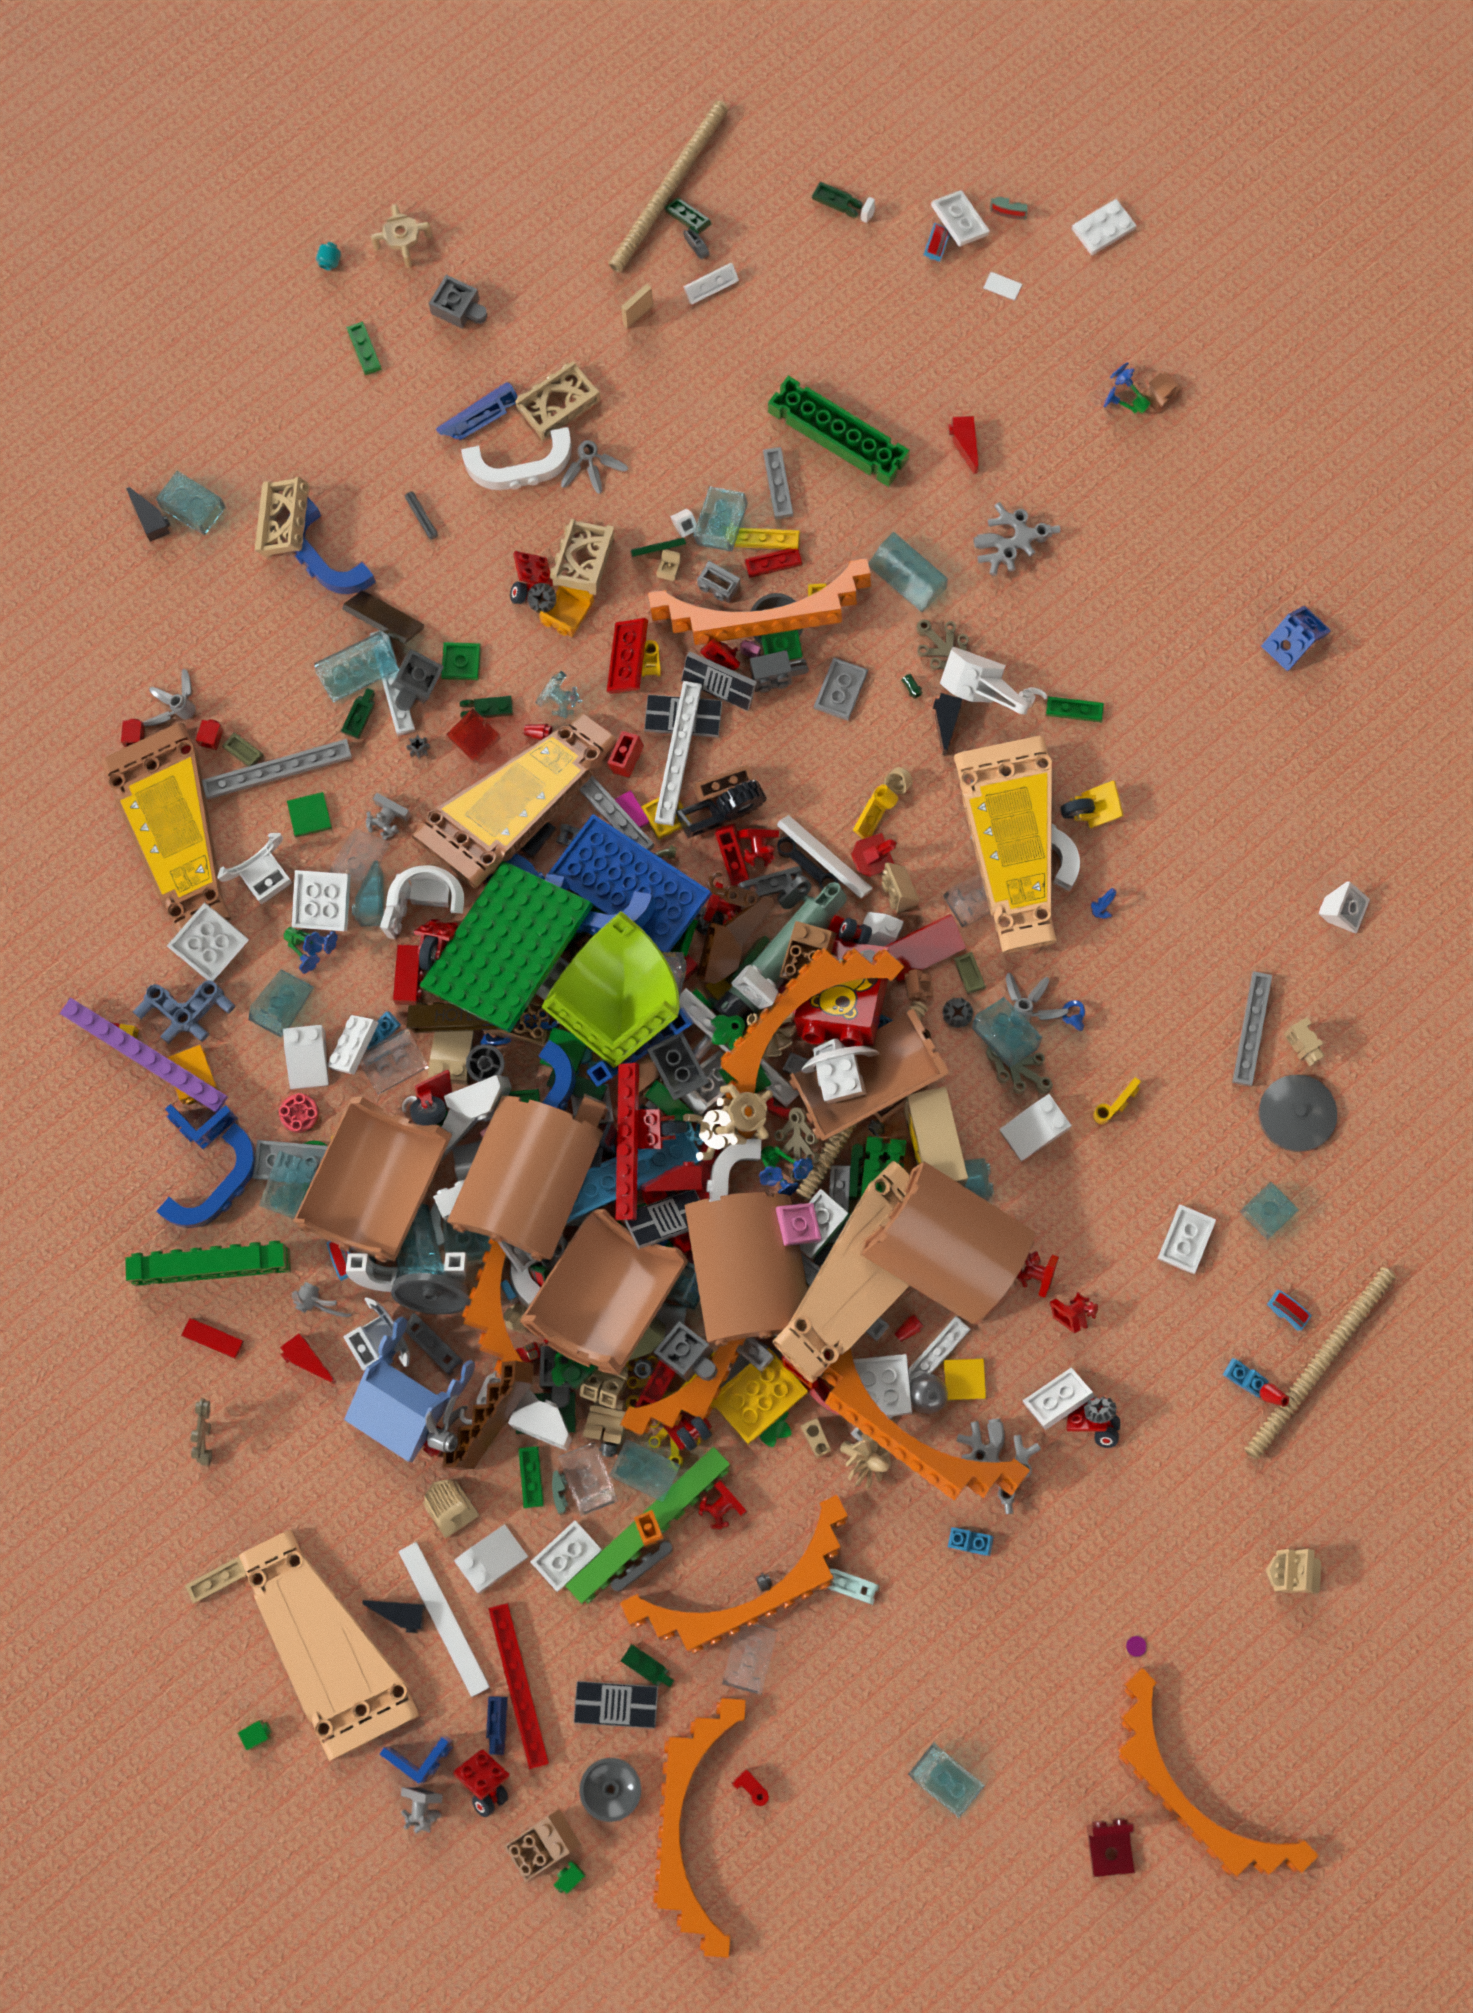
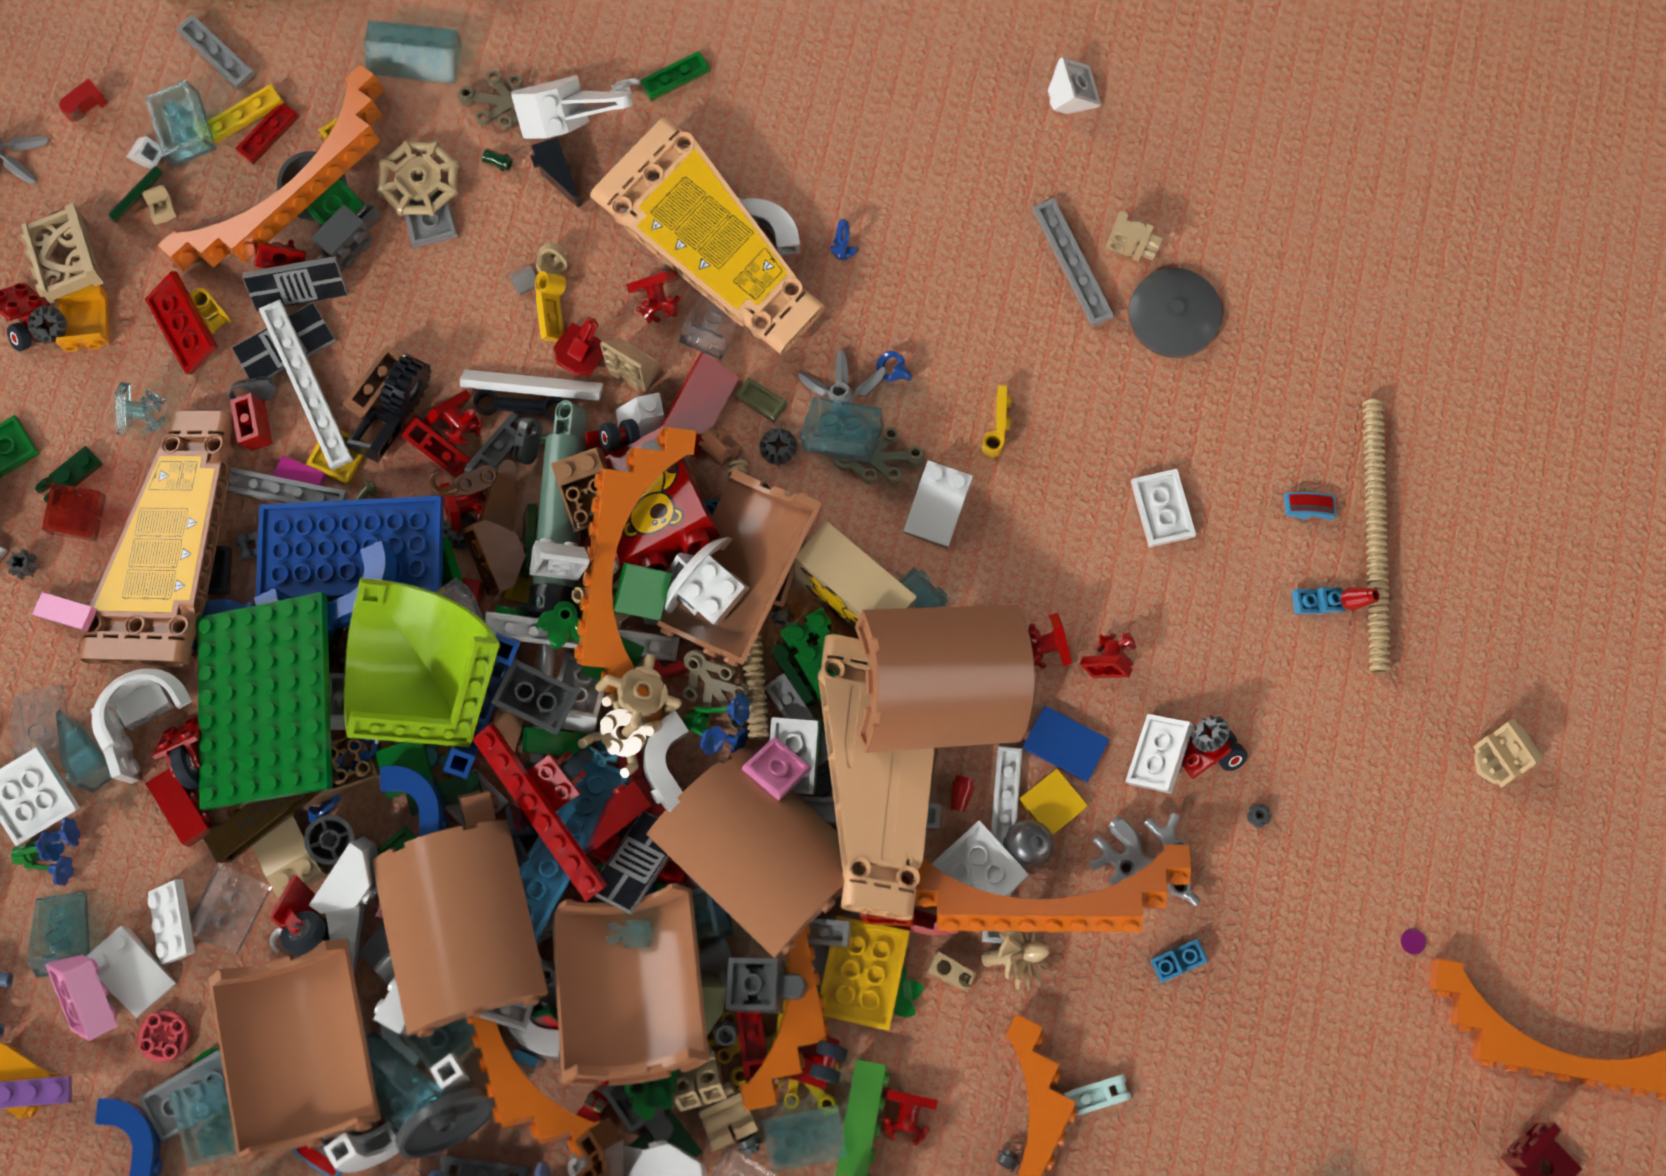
camera: 40 degrees left, 0 degrees up
(208, 1131) = (75, 1129): blue bracket -> none
(268, 1051) = (82, 996): none -> bright pink slope
(386, 816) = (38, 658): light grey piece -> none
(386, 1027) = (195, 879): dark azure slope -> none
(423, 797) = (64, 611): none -> bright pink tile
(513, 1316) = (551, 1080): tan piece -> none
(538, 731) = (140, 462): red cone -> none
(631, 1262) = (634, 934): none -> clear light blue plate
(647, 734) = (262, 387): none -> dark grey piece
(667, 458) = (81, 100): none -> red leg
(709, 586) = (232, 197): light grey window -> none
(750, 649) = (304, 231): bright pink plate -> none
(794, 1046) = (642, 591): none -> green tile
(843, 671) = (422, 189): none -> tan plate
(870, 780) = (523, 279): none -> light grey slope
(949, 854) = (655, 294): none -> red piece
(1001, 1347) = (1065, 744): none -> blue tile
(1090, 1488) = (1256, 821): none -> dark grey plate
(1095, 805) = (764, 152): yellow plate -> none
(1269, 1210) = (1220, 423): clear light blue brick -> none

